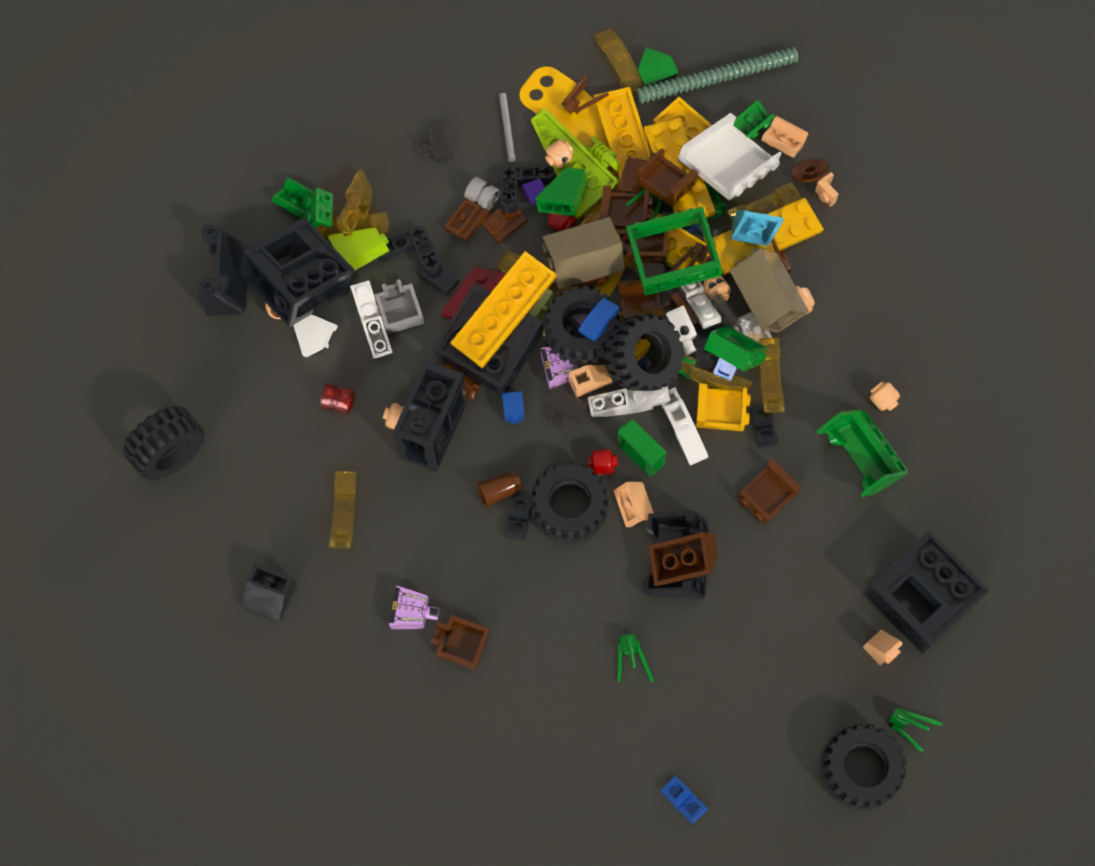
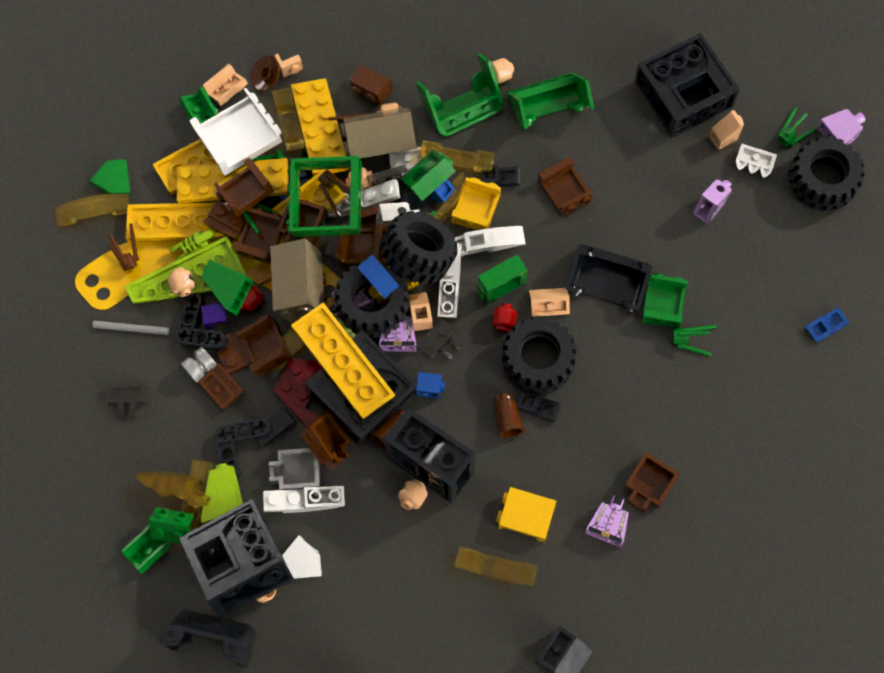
camera: 75 degrees left, 0 degrees up
(337, 399) = (374, 554): clear red wheel -> none
(401, 528) = (526, 513): none -> yellow panel
(428, 321) = (323, 439): none -> reddish brown piece
(513, 244) = (264, 345): none -> reddish brown panel
(665, 620) = (664, 301): none -> green panel
(683, 558) = (620, 266): reddish brown slope -> none
(717, 75) = (140, 127): sand green piece -> none
(754, 227) = (316, 125): medium azure slope -> none
(796, 648) = (715, 194): none -> lavender torso
(827, 272) = (370, 85): none -> reddish brown brick
(830, 371) = (468, 107): none -> green windscreen
(860, 687) = (755, 160): none -> white plate
(929, 779) = (842, 126): none -> lavender torso

